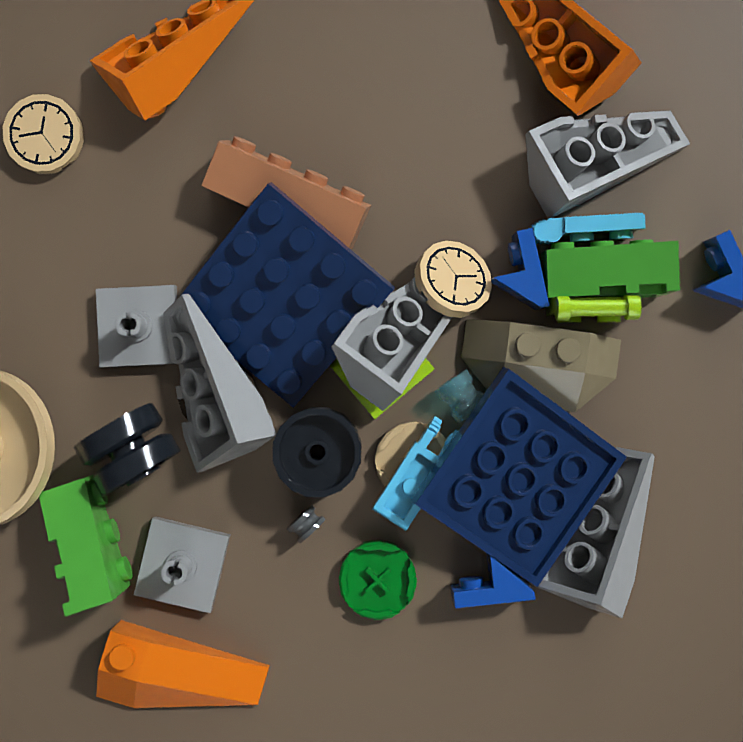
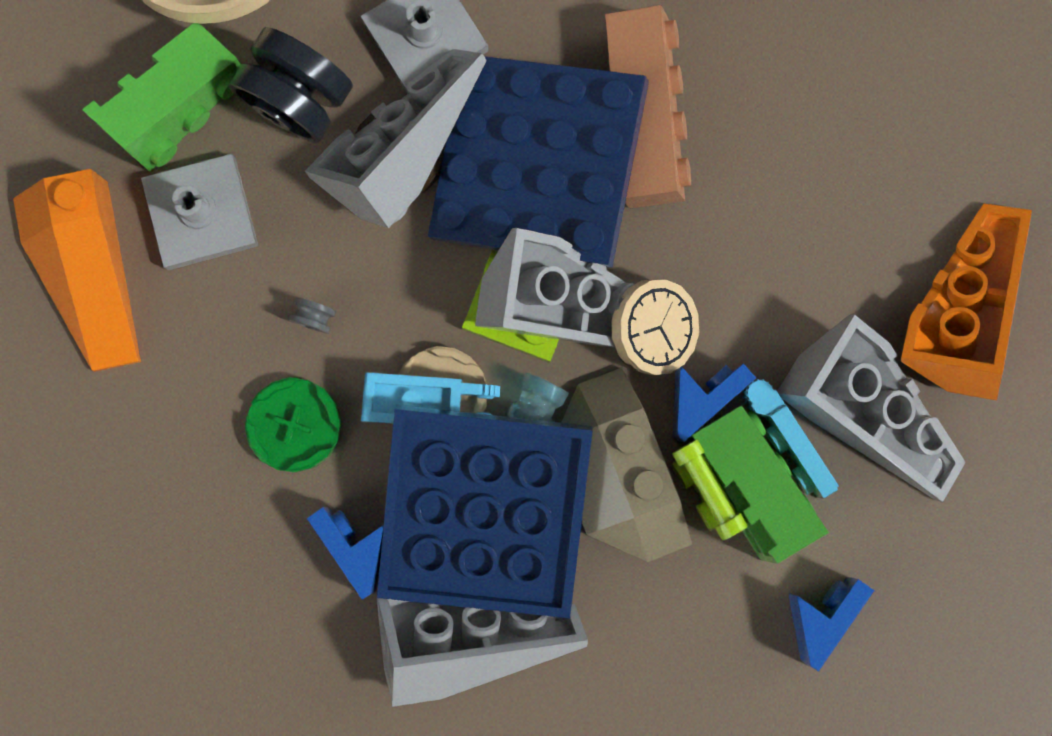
camera: 60 degrees right, 5 degrees down
(315, 475) = (387, 255): black wheel -> none

